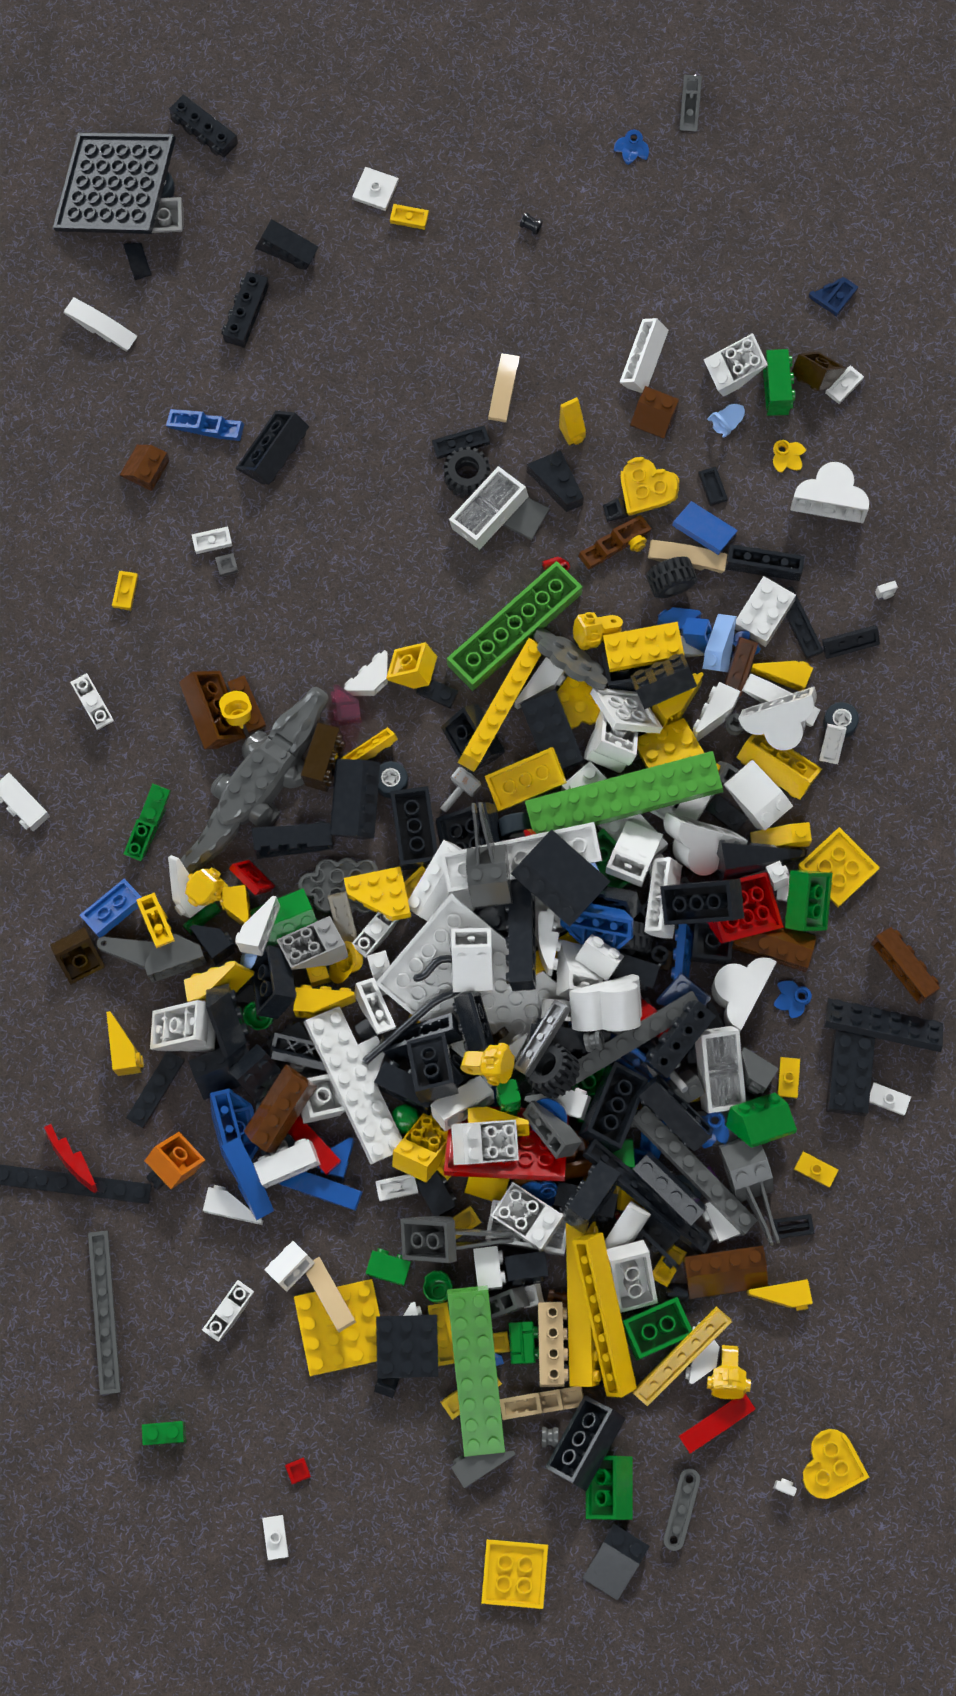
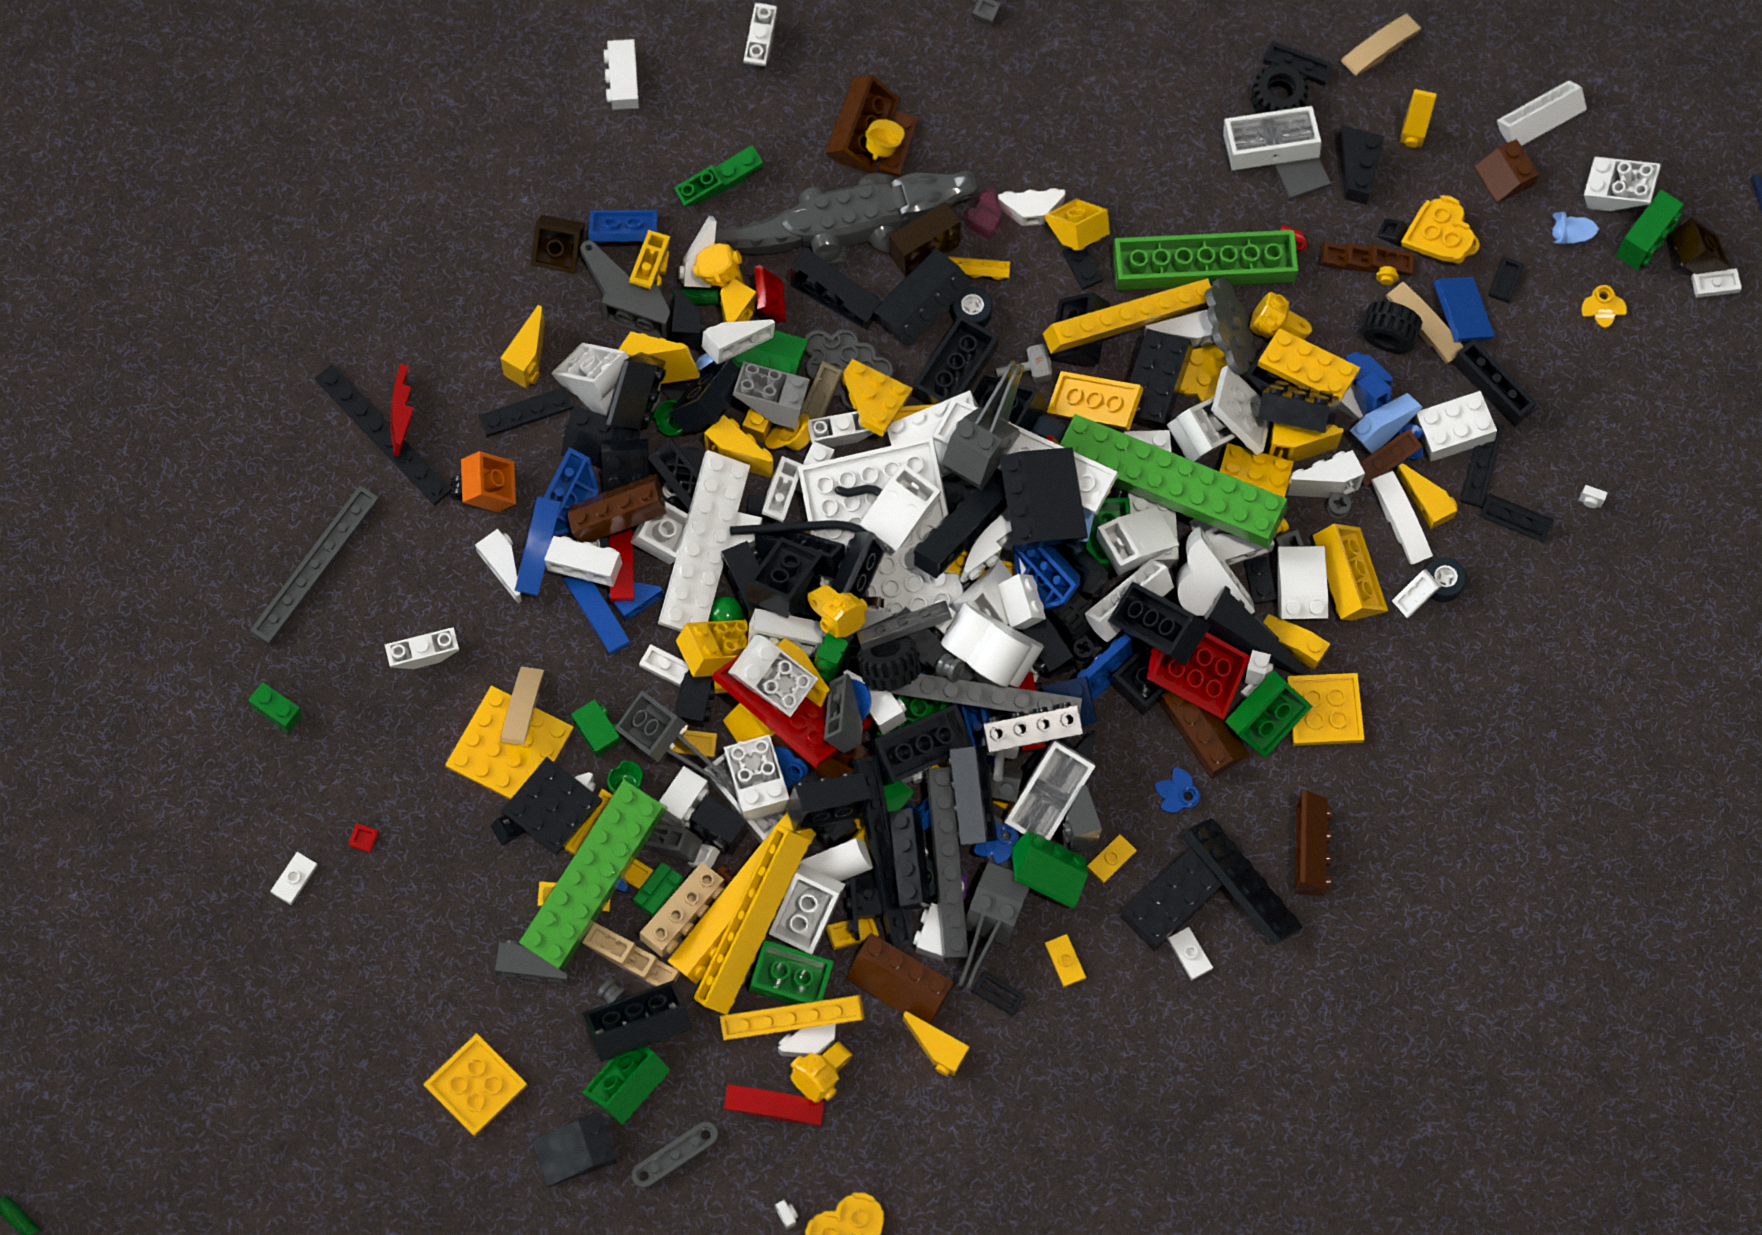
camera: 35 degrees right, 5 degrees down
(289, 1266) = (509, 655): white brick -> none
(677, 1290) = (841, 963): black slope -> none
(739, 988) = (1134, 742): white brick -> none
(780, 719) = (1384, 533): white brick -> none
(832, 495) = (1611, 368): white brick -> none

